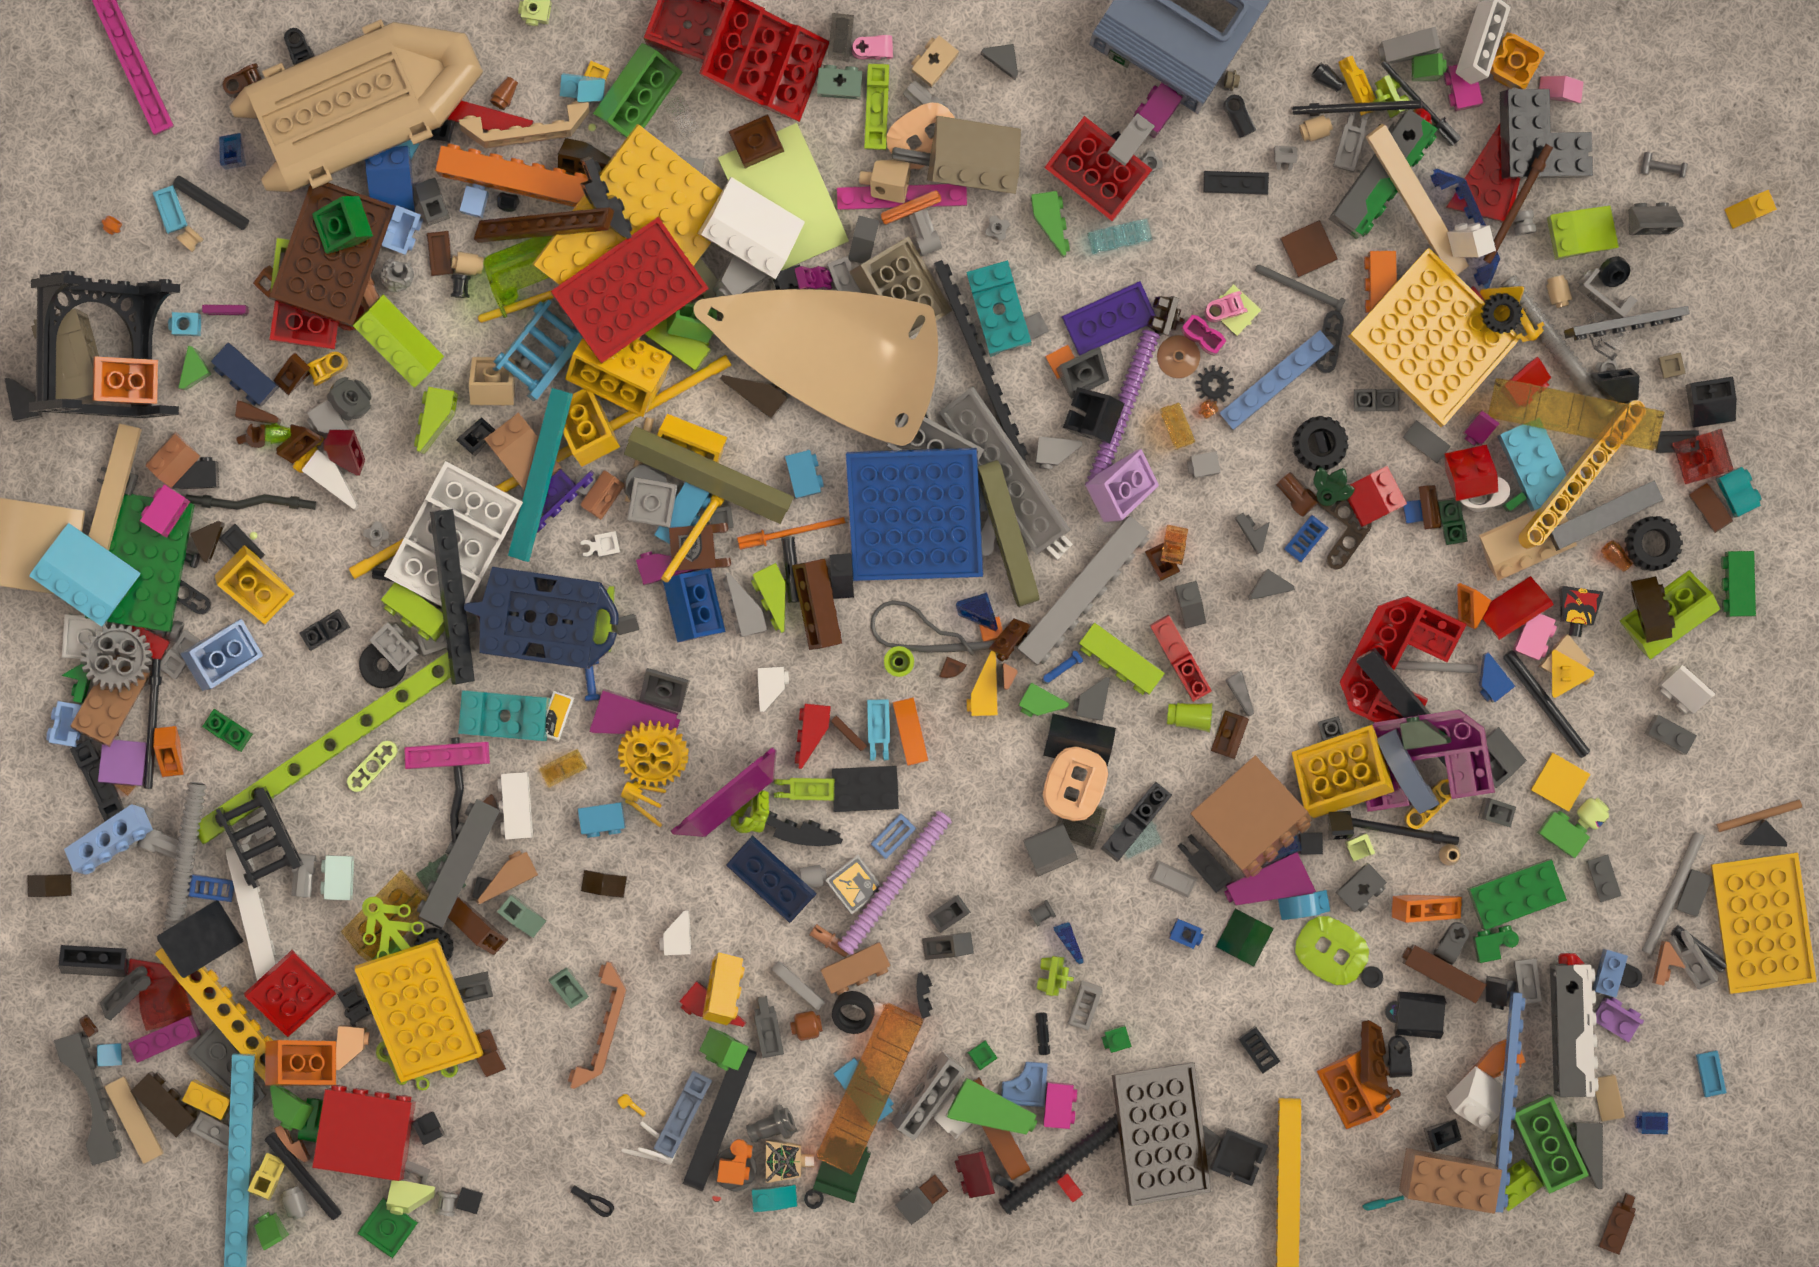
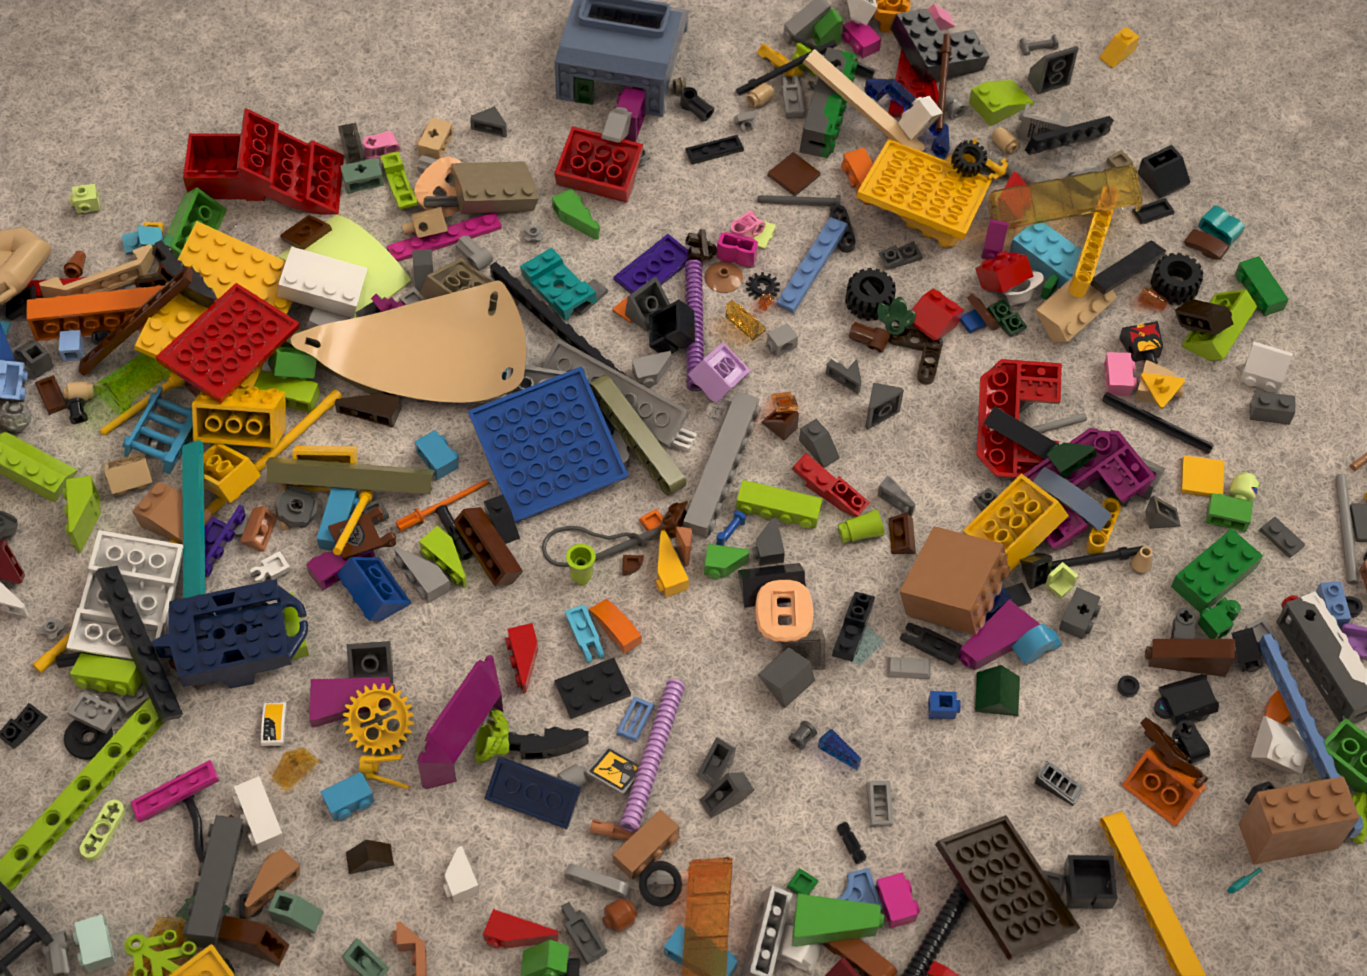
camera: 20 degrees left, 30 degrees down
(474, 437) = (122, 521): black slope -> none
(482, 712) = (200, 742): teal piece -> none
(591, 688) = (290, 670): blue piece -> none
(627, 624) = (316, 623): dark grey slope -> none
(652, 502) = (305, 512): light grey tile -> none
(723, 989) = (523, 904): yellow brick -> none
(771, 684) = (470, 628): white slope -> none
(807, 789) = (535, 704): lime hinge -> none
(848, 733) = (558, 644): reddish brown tile -> none
(911, 207) = (453, 238): orange axle -> none
(922, 988) = (718, 839): black slope -> none
(978, 610) = (636, 507): clear blue slope -> none
(1057, 976) = (835, 776): lime hips -> none
(1116, 1039) = (924, 818): green brick -> none
(1119, 235) = (636, 207): clear light blue beam -> none
(1317, 523) = (896, 355): blue slope -> none
(1323, 963) = (1079, 689): lime piece -> none
(1327, 77) = (752, 62): black cone -> none
(1426, 441) = (955, 271): dark grey tile -> none
(1426, 908) = (1143, 609): orange slope -> none
(1471, 605) = (1054, 355): orange slope -> none
(1493, 680) = (1103, 414): blue slope -> none
(1516, 607) = (1092, 357): red tile -> none
(1614, 271) = (1041, 109): black plate -> none
(1706, 462) = (1184, 210): clear red slope -> none

